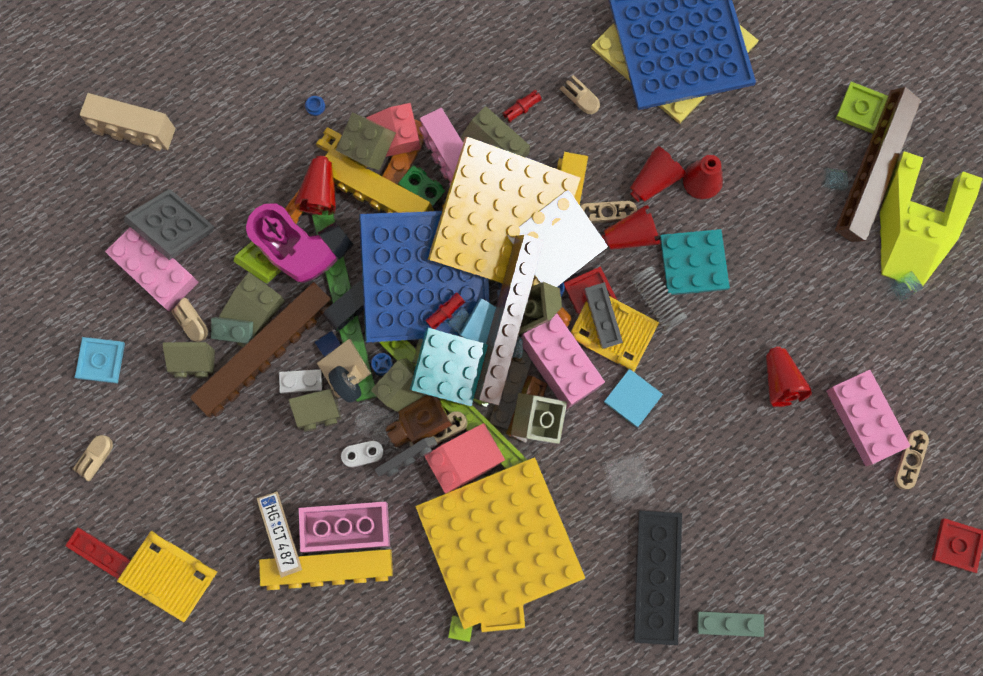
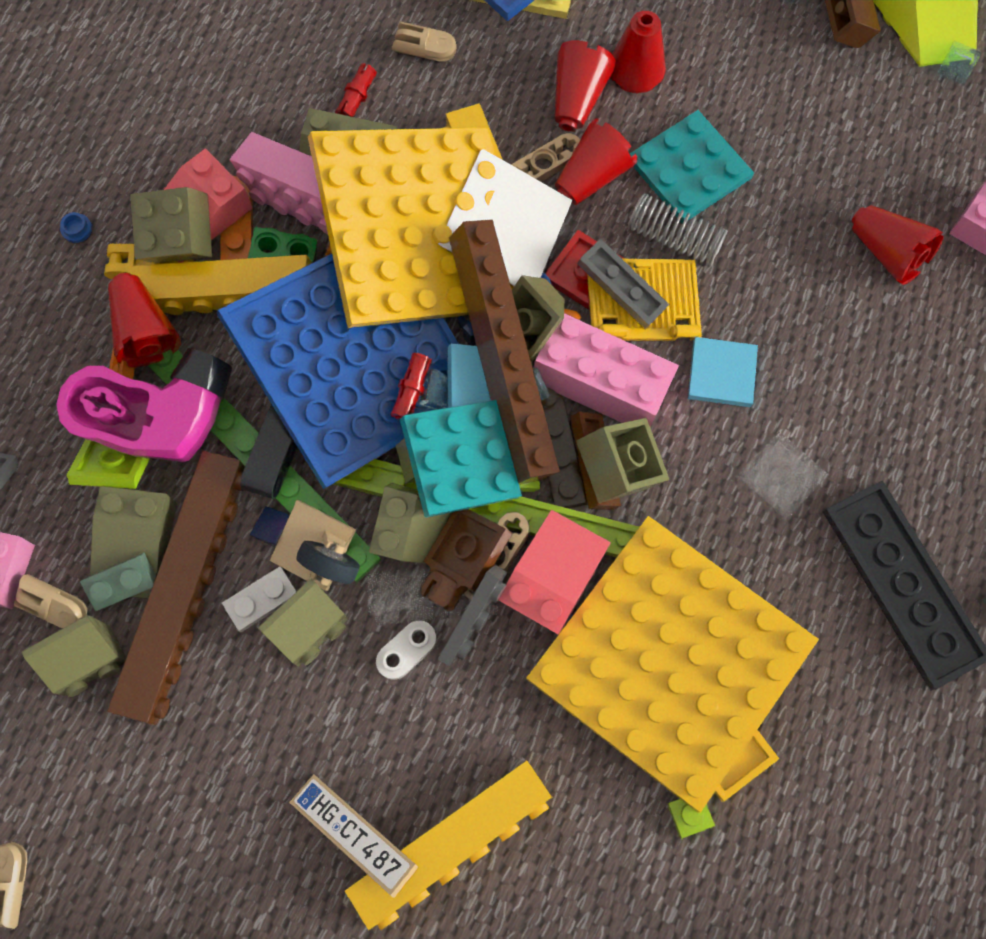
camera: 30 degrees left, 5 degrees down
(344, 527) = (441, 768): bright pink brick -> none
(381, 361) = (362, 504): blue wheel -> none

